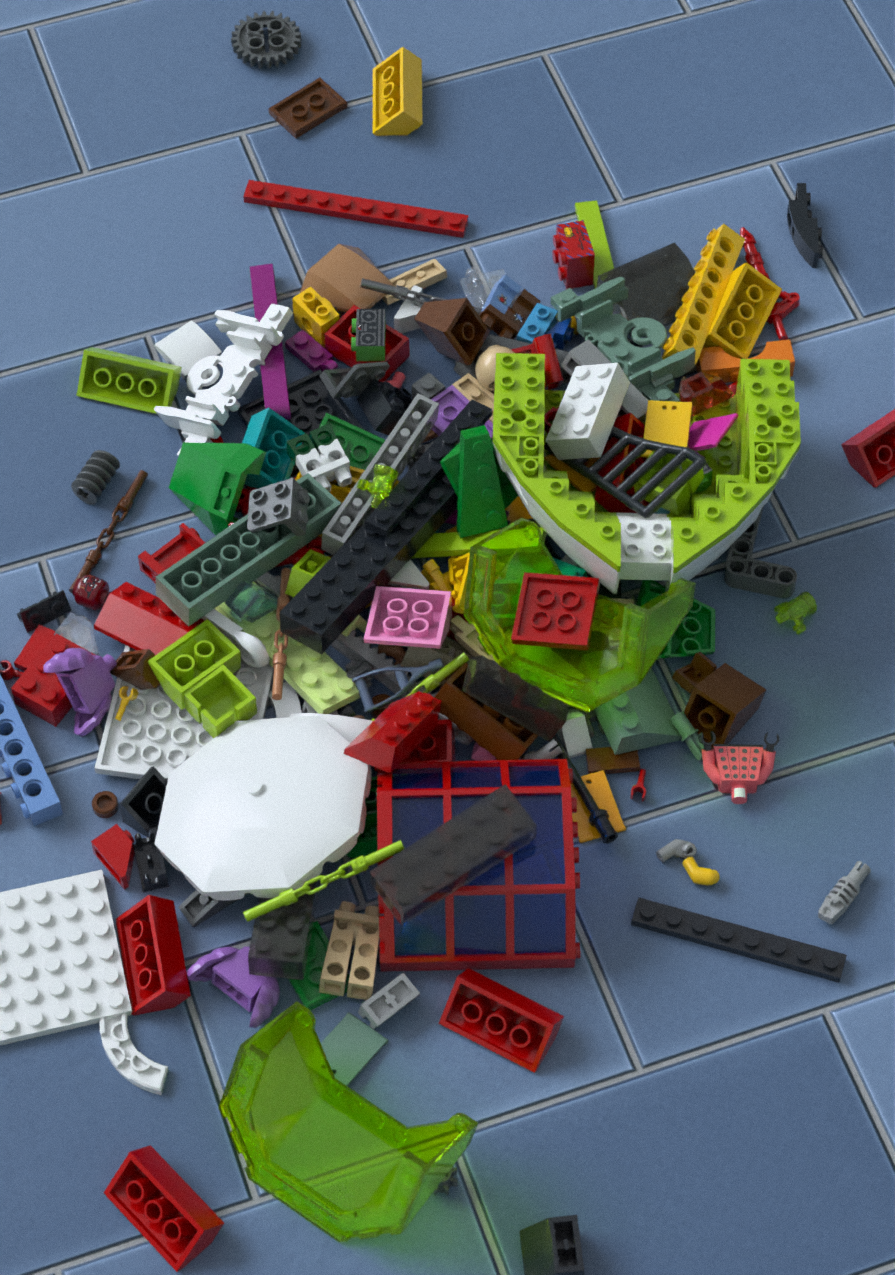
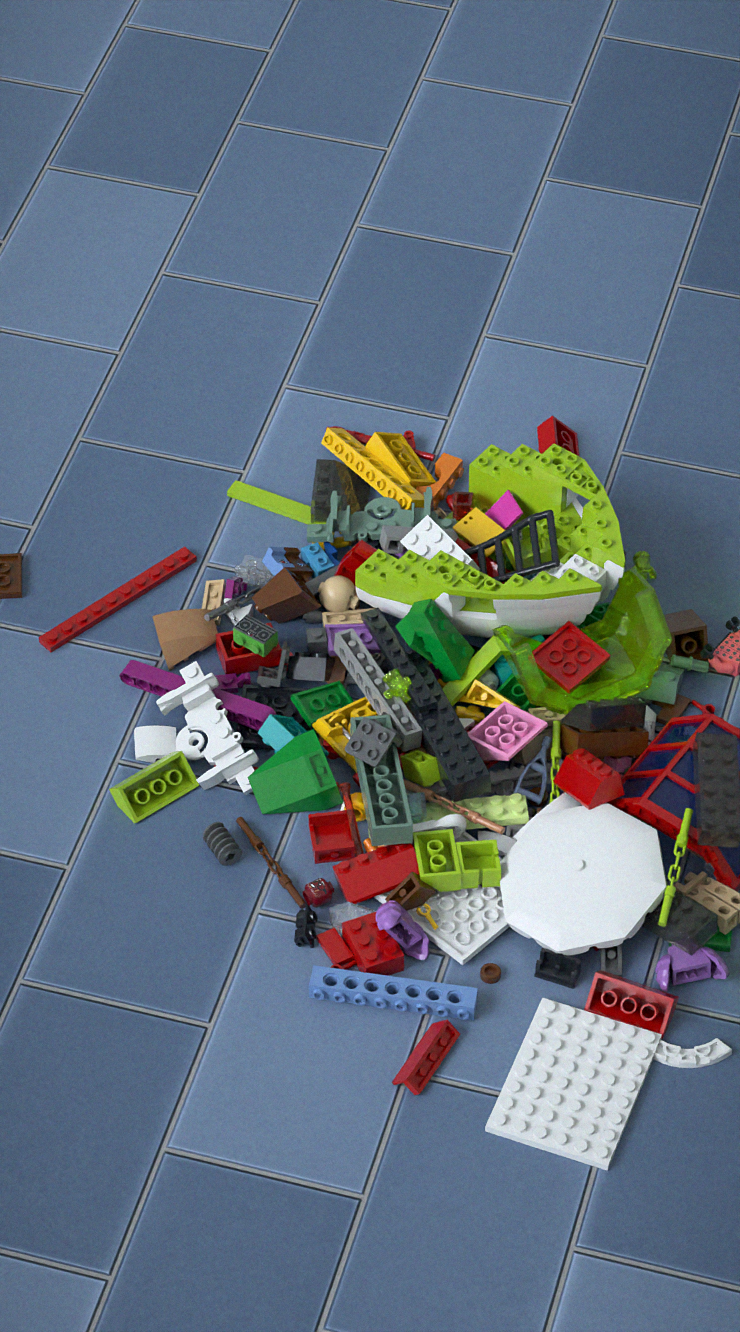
camera: 55 degrees left, 10 degrees down
(116, 853) = (540, 983): red slope -> none
(144, 803) = (514, 948): black slope -> none
(314, 314) = (206, 656): yellow brick -> none
(321, 457) = (334, 711): white hips -> none
(394, 651) = (503, 765): nougat arm -> none
(397, 94) = (43, 525): yellow slope -> none
(435, 283) = (235, 587): none -> magenta hinge
(573, 255) = (277, 510): red brick -> none
(803, 227) = (357, 401): black slope -> none

